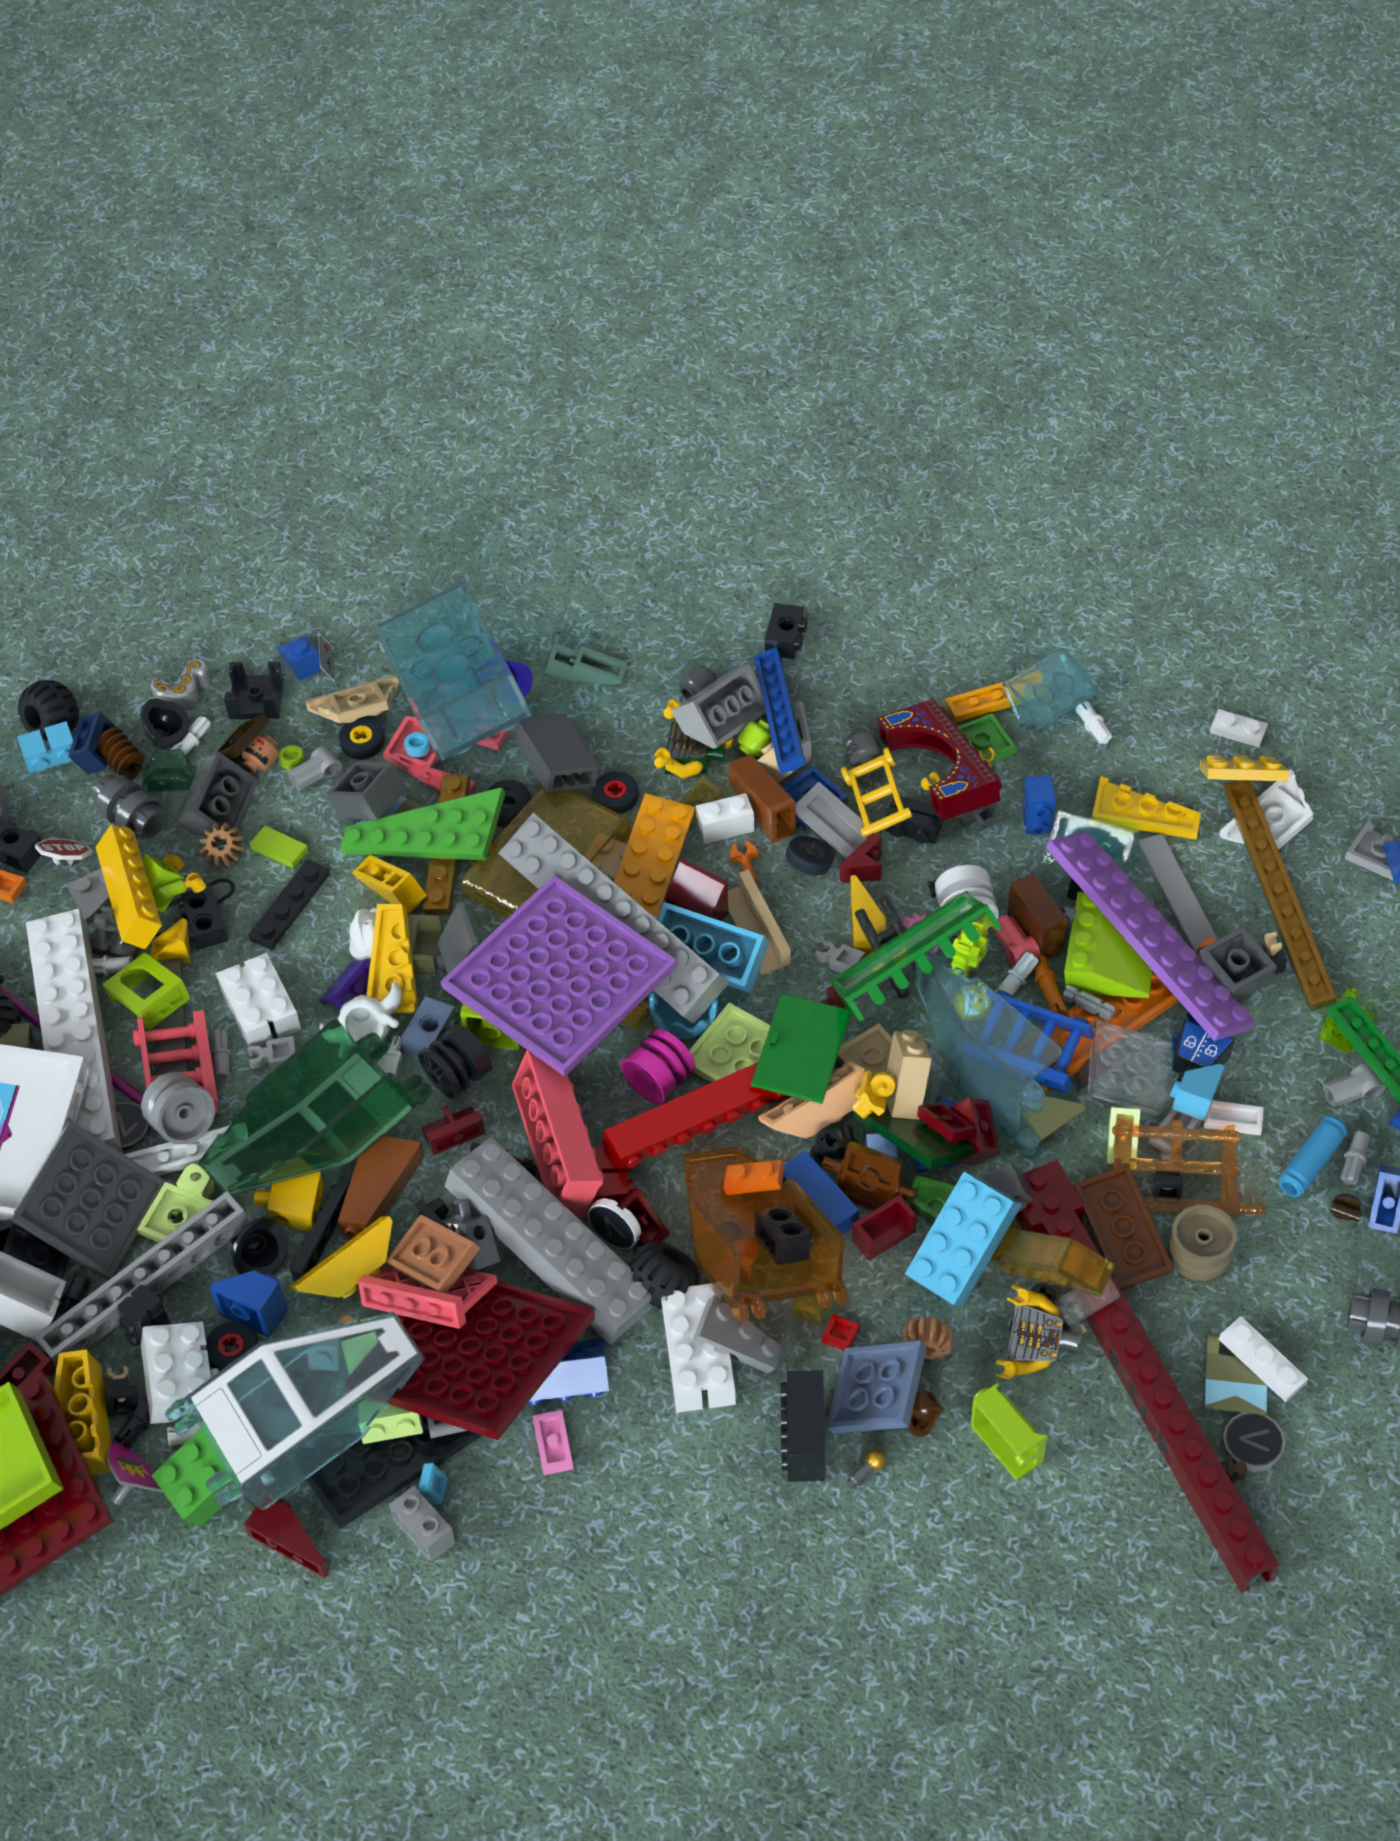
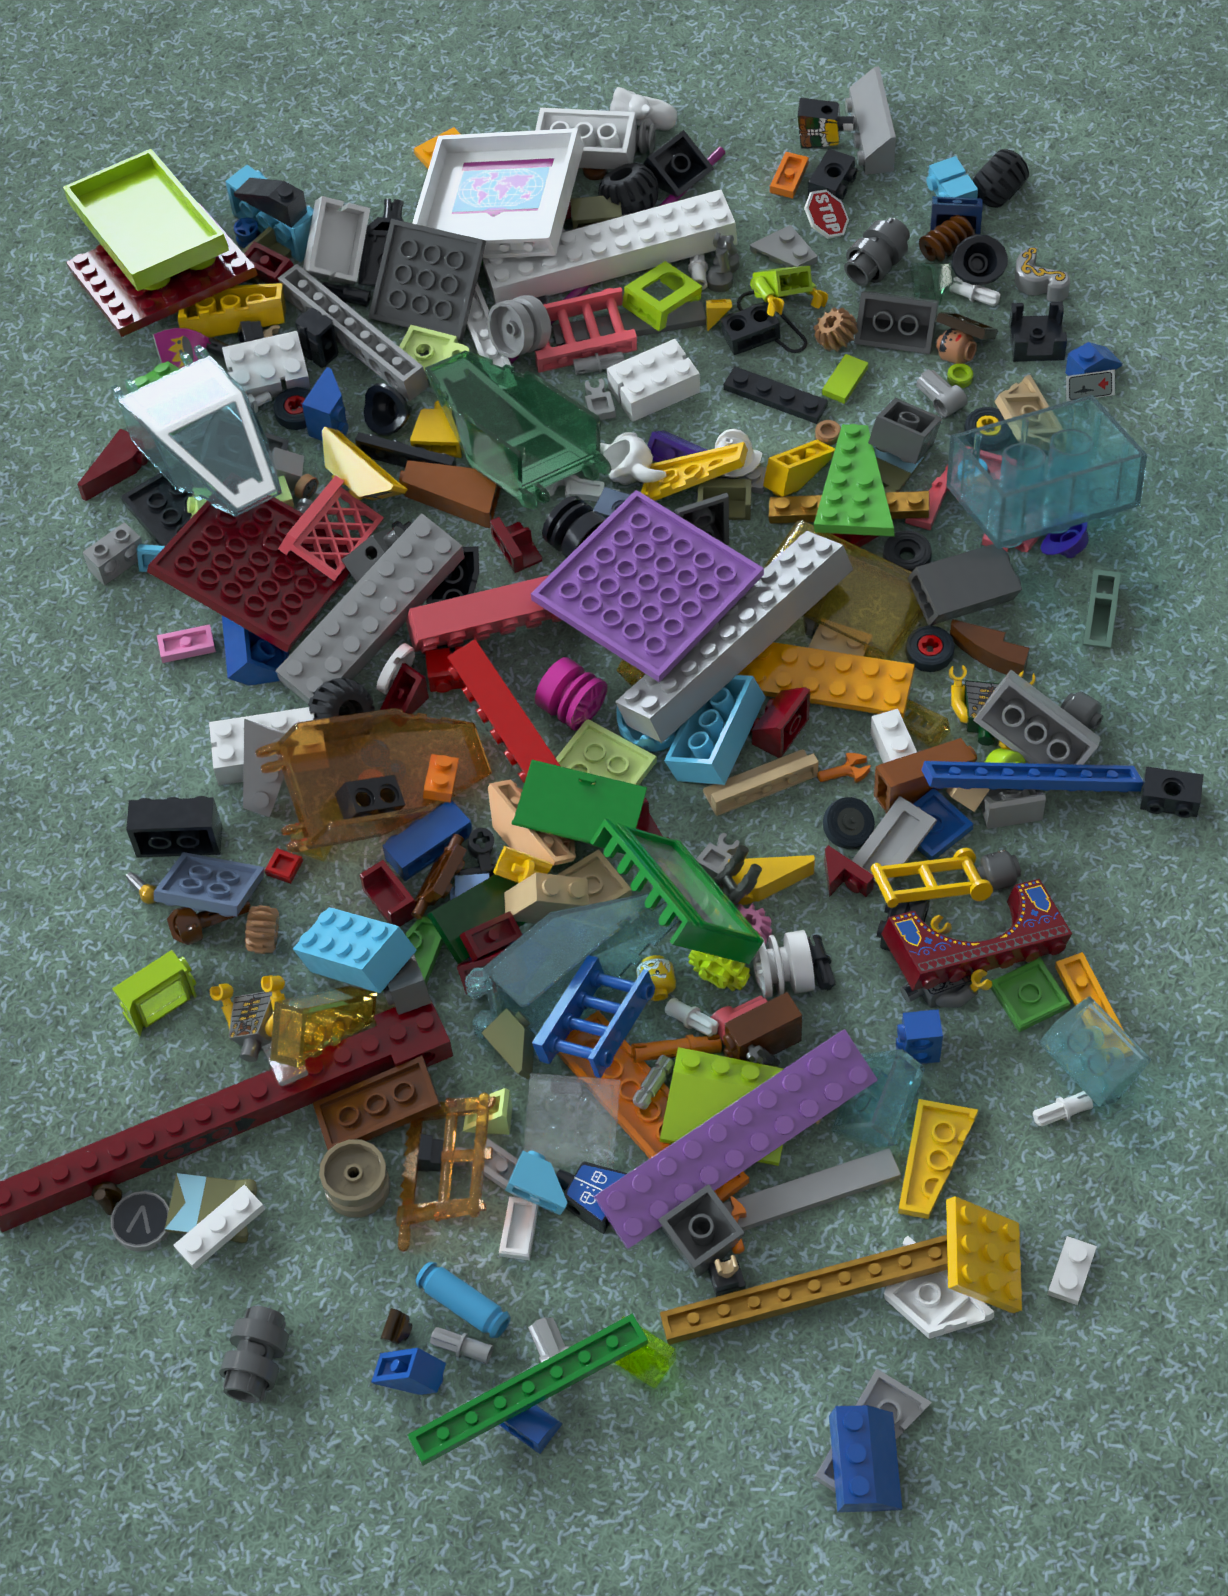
camera: 90 degrees right, 5 degrees up
(128, 886) = (768, 257): yellow brick -> none
(344, 863) = (827, 432): none -> medium nougat tile
(432, 1254) = (354, 523): nougat plate -> none
(624, 743) = (989, 647): none -> reddish brown slope

